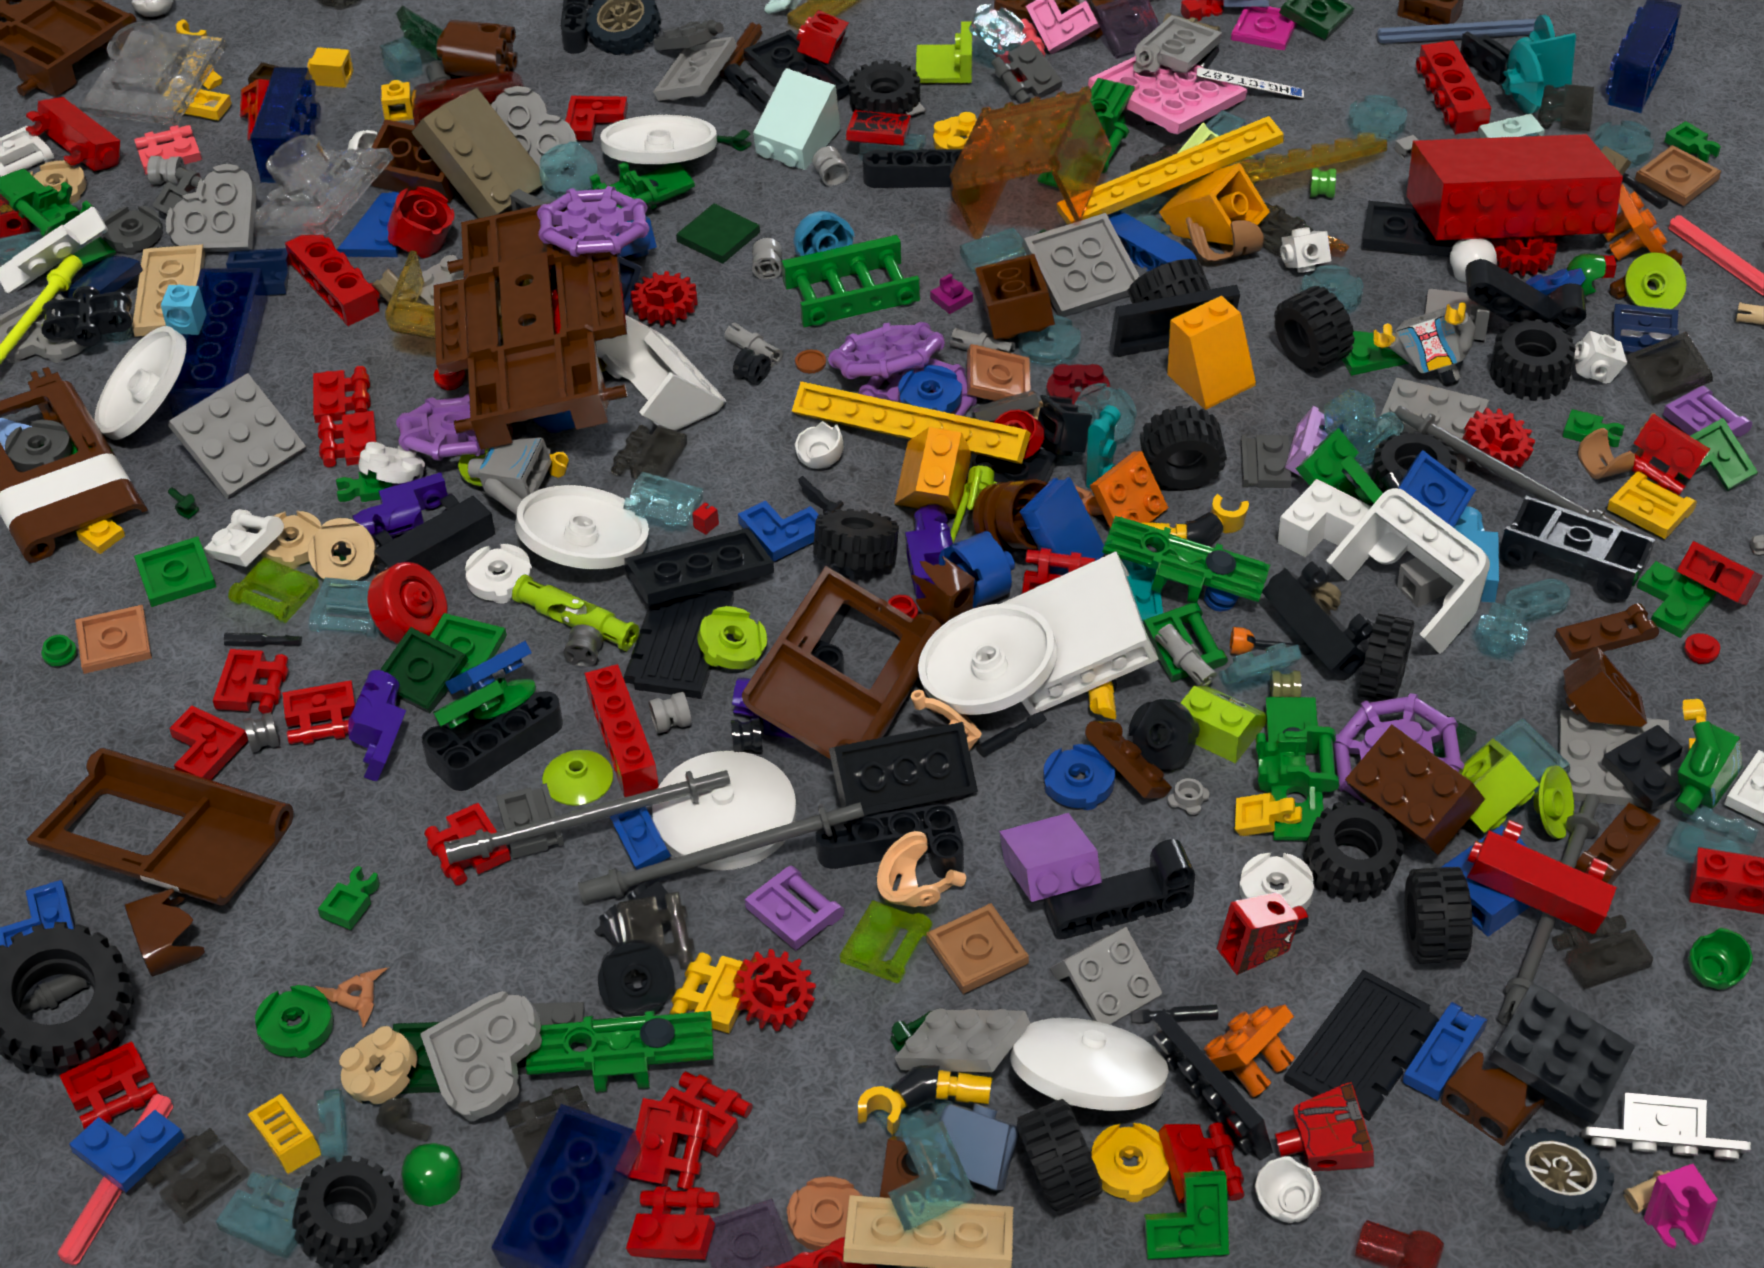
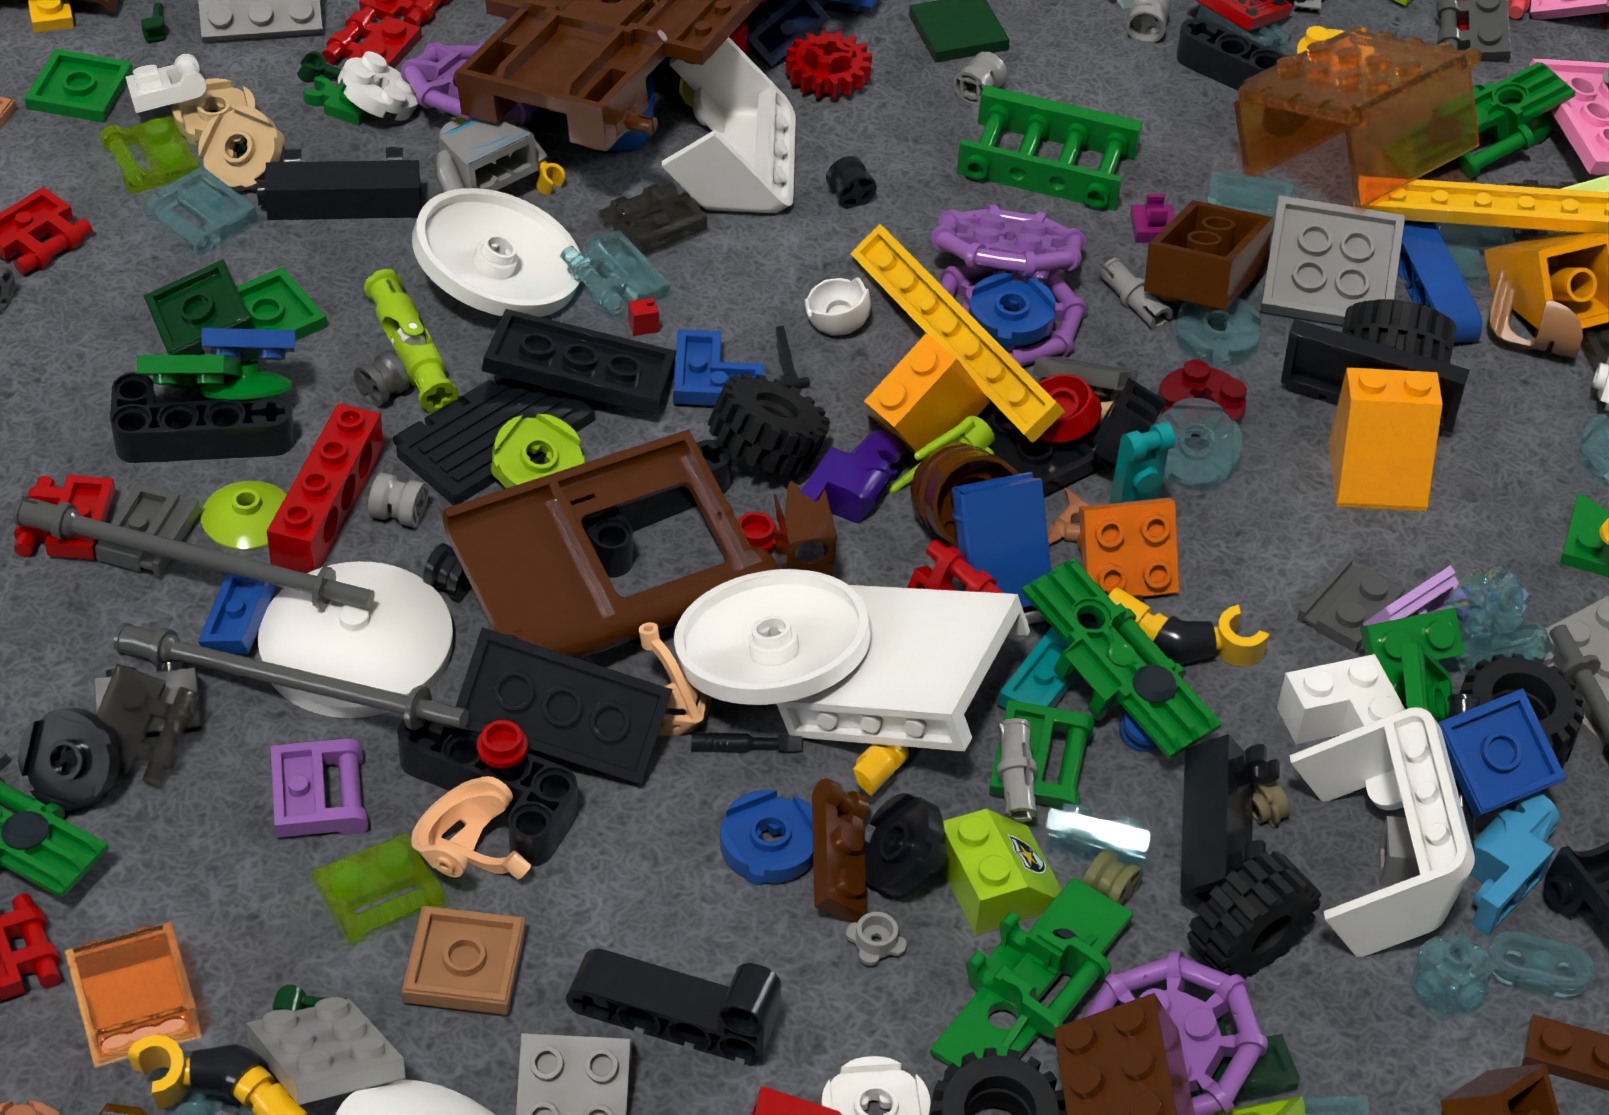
camera: 30 degrees right, 0 degrees up
(259, 639) = (87, 195): black piece -> none
(315, 705) = (70, 289): red plate -> none
(329, 472) = (315, 64): none -> dark green hand
(376, 720) = (99, 338): dark purple plate -> none
(402, 506) = (346, 135): dark purple plate -> none
(406, 598) = (251, 230): red wheel -> none
(485, 561) = (355, 252): white plate -> none
(717, 994) = (148, 837): yellow plate -> none
(754, 341) = (879, 161): light grey pin -> none
(769, 992) = (189, 843): red gear -> none
(810, 361) = (925, 212): dark orange piece -> none
(810, 1084) = (132, 991): none -> clear orange piece
(822, 232) = (1059, 77): dark azure cylinder -> none
(893, 812) = (502, 744): none -> red plate
(985, 562) = (872, 534): blue brick -> none
(996, 373) = (1117, 332): nougat tile -> none
(1050, 857) = (631, 905): medium lavender brick -> none
(1183, 448) = (1241, 528): black tyre -> none
(1243, 641) = (1117, 795): orange hinge -> none
(1259, 812) = (938, 1007): yellow plate -> none
(1314, 329) = (1541, 478): black tyre -> none

